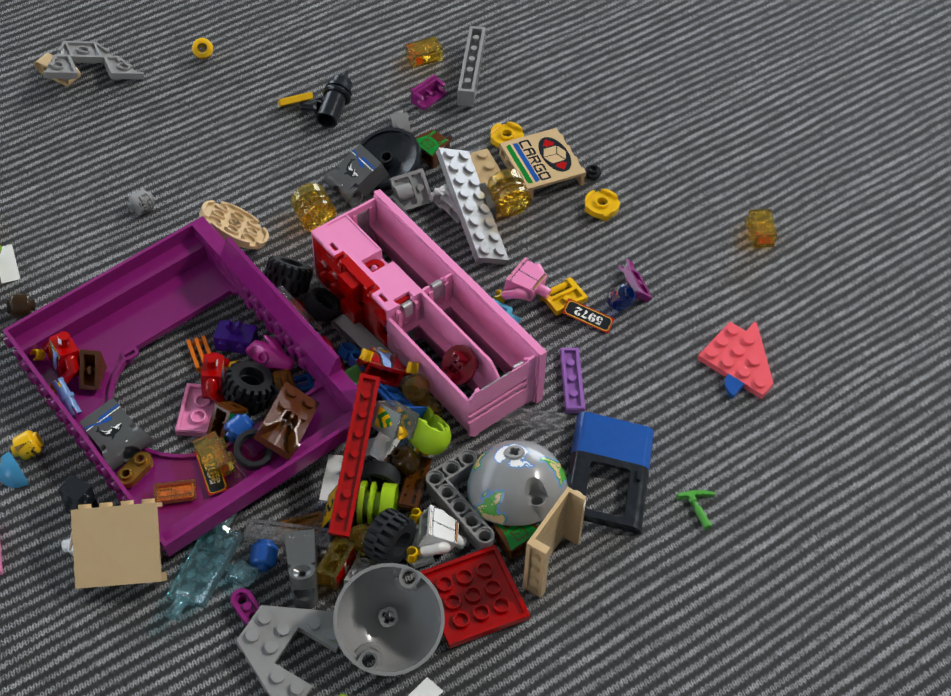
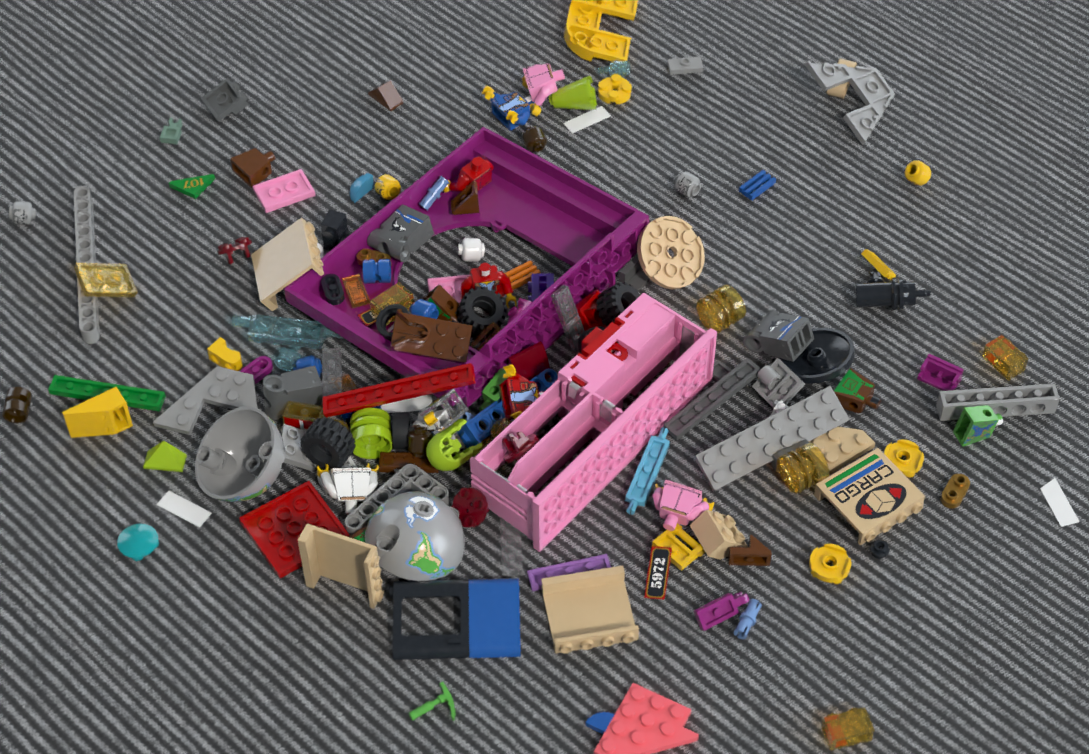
camera: 80 degrees right, 0 degrees up
(54, 606) = (240, 243): none -> dark red plate
(153, 384) = (471, 249): none -> white head
(161, 146) = (755, 182): none -> blue tile
(161, 464) = (376, 271): none -> blue wheel
(169, 508) = (332, 289): none -> black plate
(215, 636) = (223, 356): none -> yellow leg
(400, 120) = (881, 358): light grey bracket -> none
(490, 78) = (976, 424): none -> bright green torso
(496, 433) = (476, 512): none -> dark red plate
(546, 115) = (955, 489): none -> pearl gold plate
(561, 266) = (717, 533): none -> tan slope
(570, 64) = (1059, 503): none -> white sticker
(581, 247) = (754, 555): none -> reddish brown slope
(620, 374) = (588, 609): none -> tan panel
(621, 297) = (688, 596): clear blue head -> none
(647, 266) = (747, 619): none -> medium blue pin

